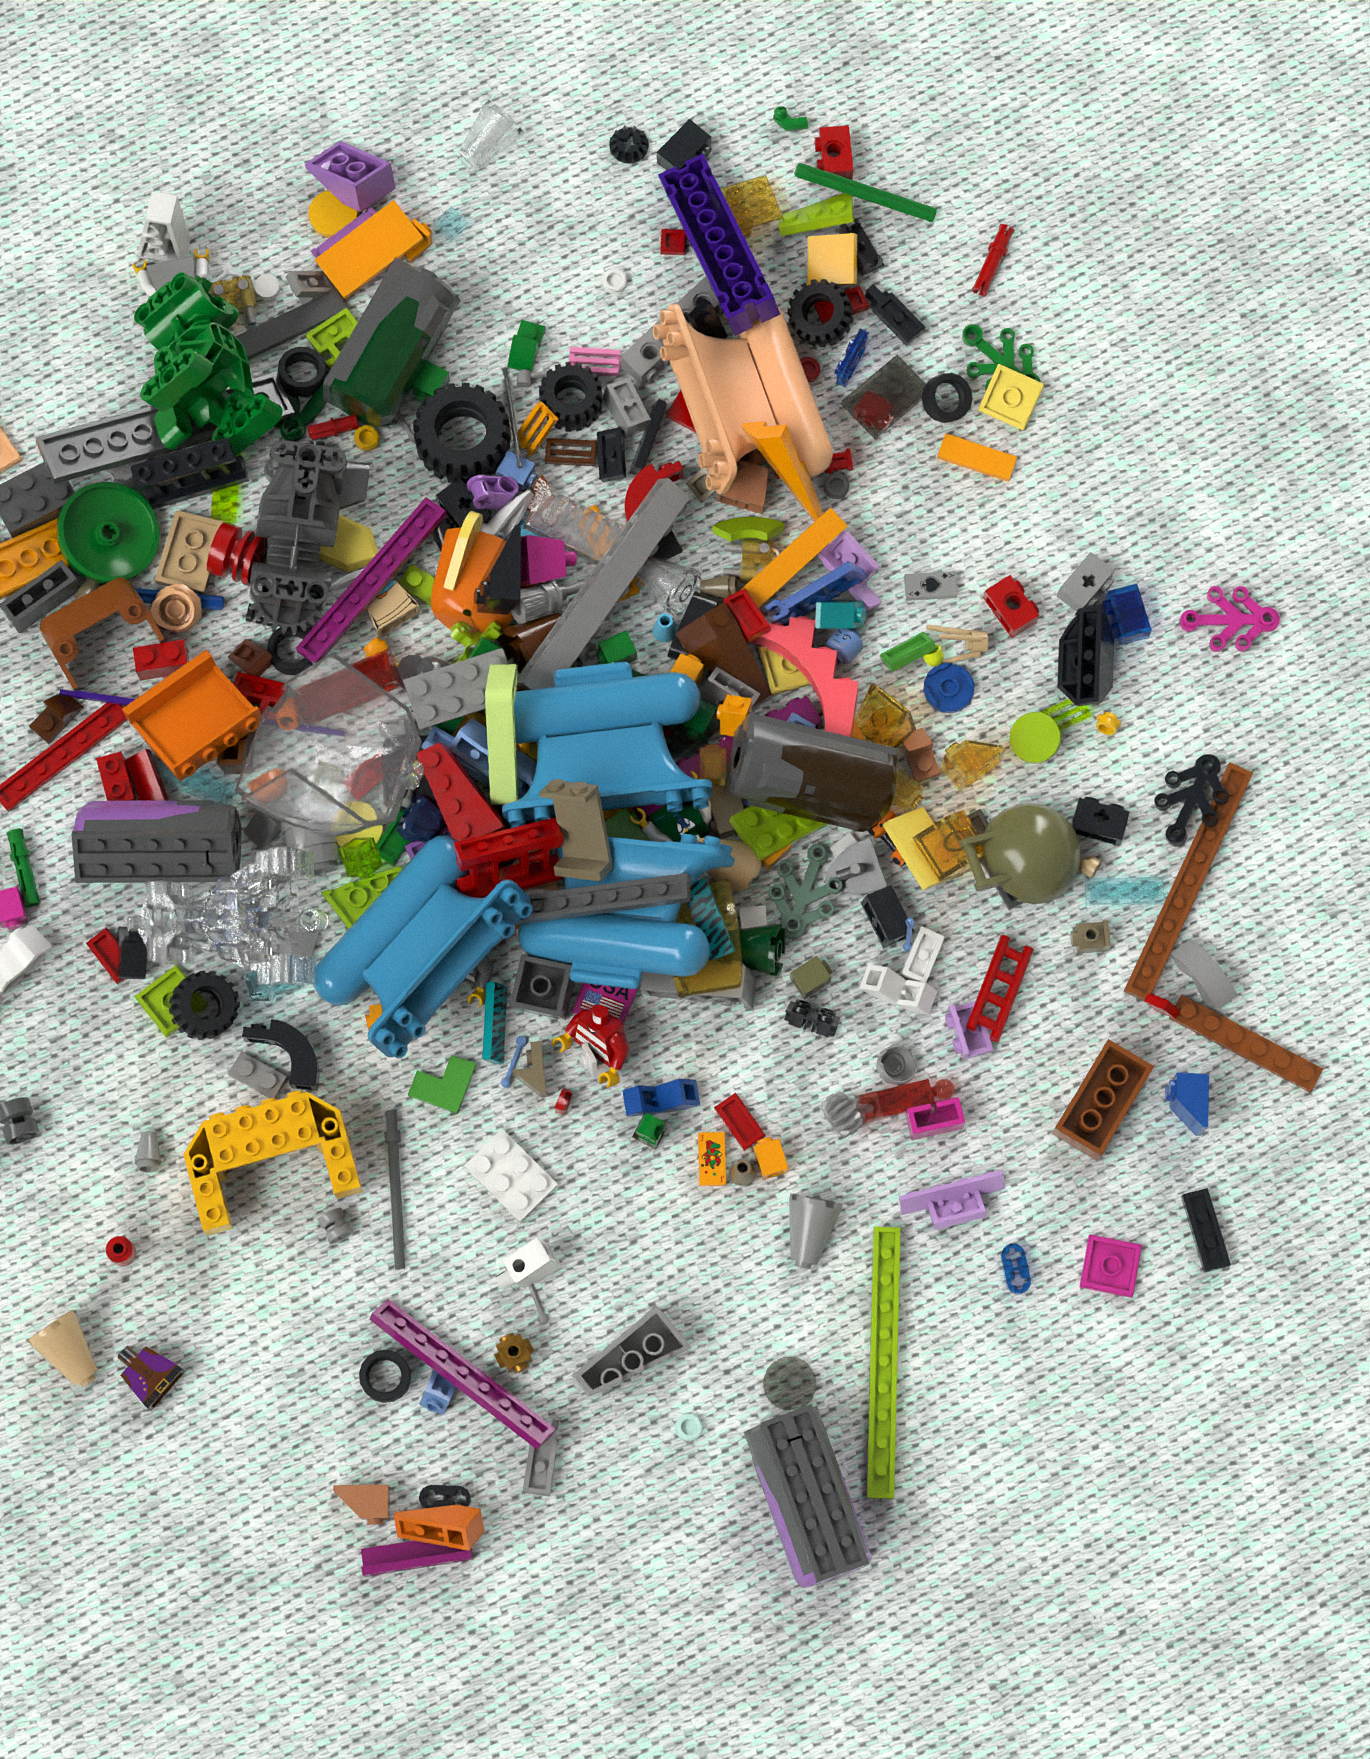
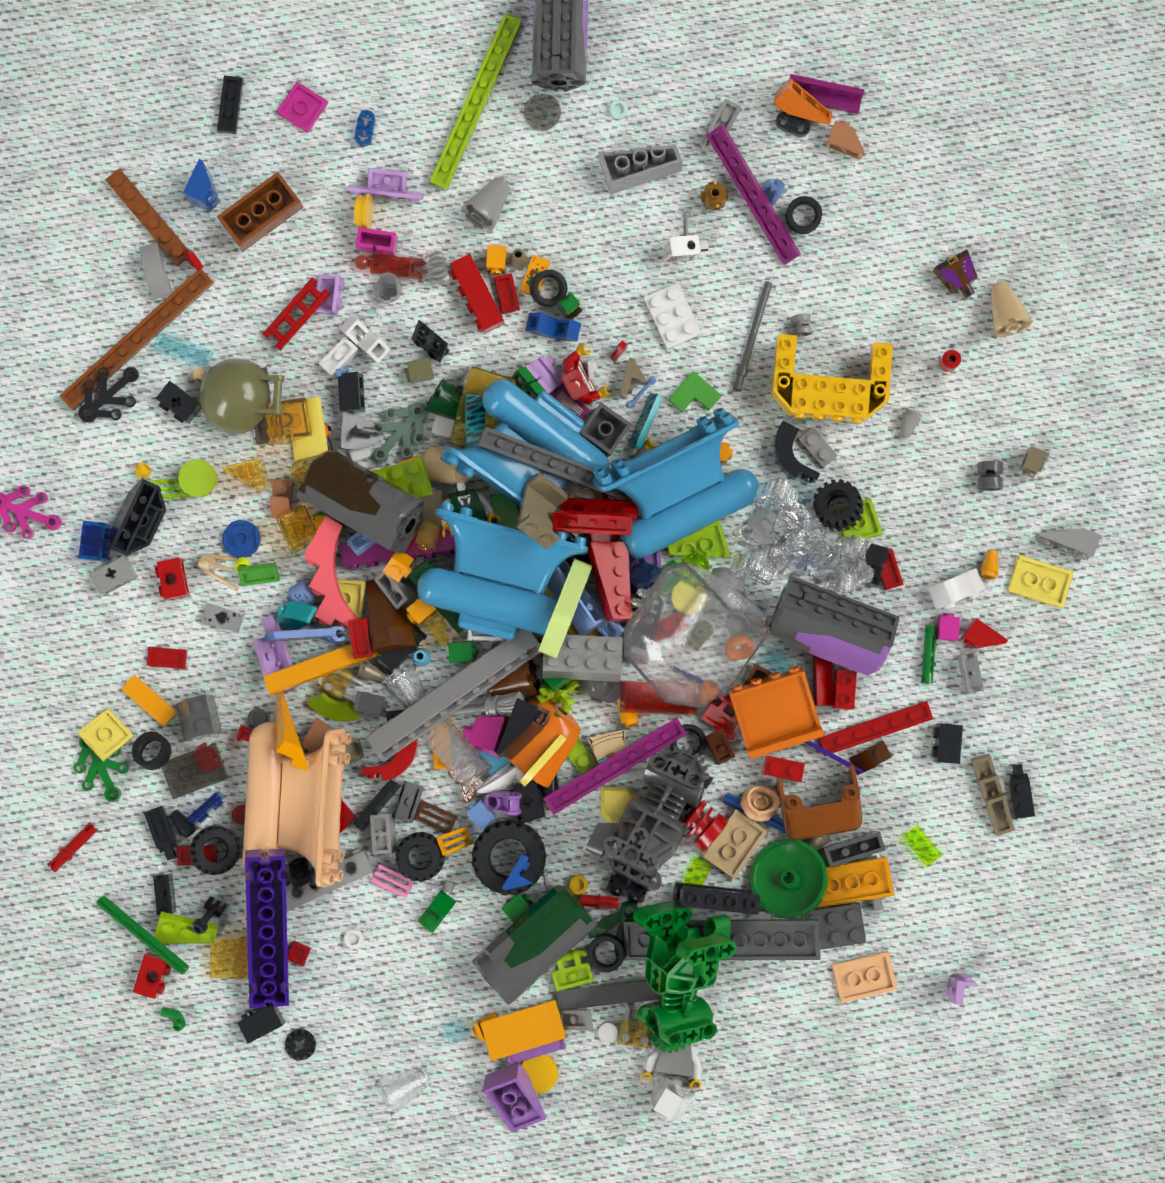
camera: 160 degrees left, 10 degrees up
(441, 403) = (515, 878): none -> blue slope
(512, 418) = (468, 856): dark grey piece -> none
(651, 1028) = (539, 376): none -> lavender hips
(654, 658) = (437, 627): none -> clear yellow tile
(668, 1139) = (534, 292): none -> black tyre
(703, 544) = (370, 703): none -> dark grey slope
(777, 1103) = (477, 294): none -> red brick
(799, 221) = (200, 925): none -> black hinge
(833, 259) = (189, 889): yellow tile -> none
(877, 333) = (182, 825): none -> black cone
(904, 455) = (198, 717): none -> dark grey slope
(968, 1151) = (363, 211): none -> yellow hat
(977, 514) = (167, 657): none -> red tile
(1083, 944) = (225, 331): dark tan brick -> none

